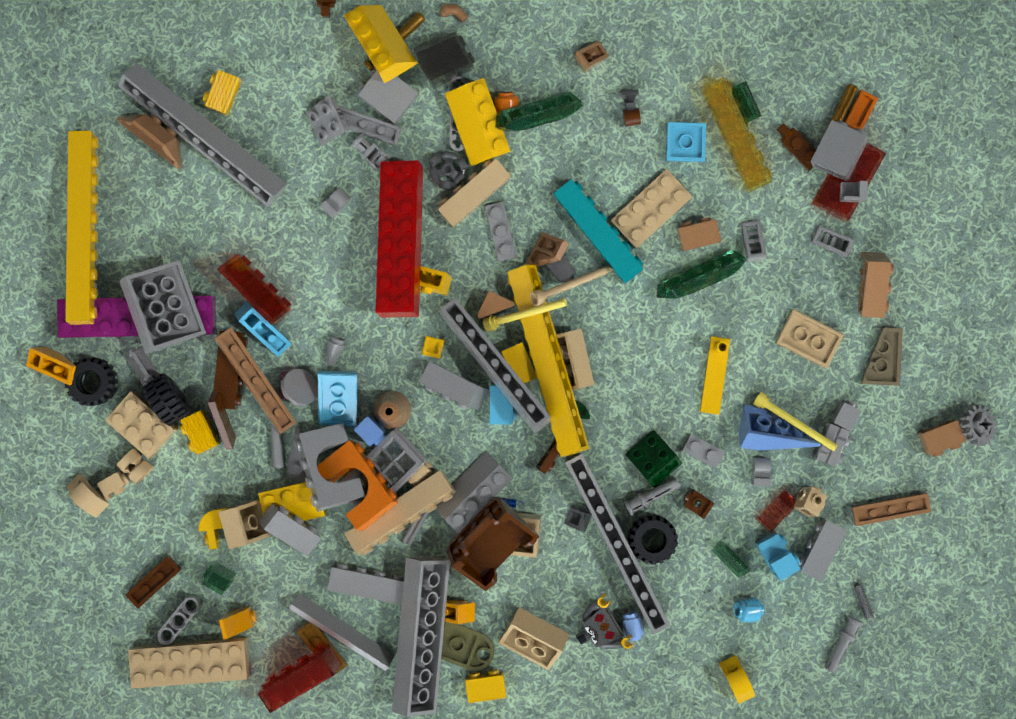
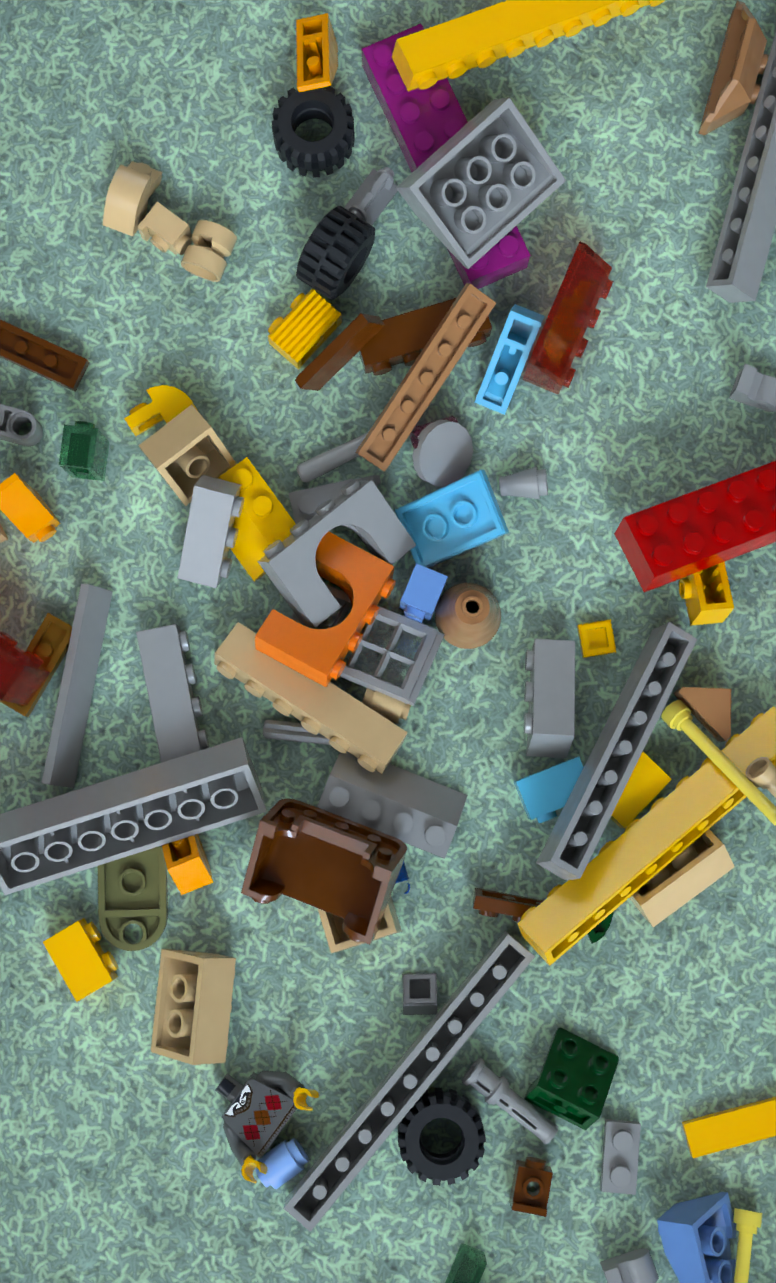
camera: 65 degrees right, 5 degrees down
(140, 425) = (276, 233): tan brick -> none

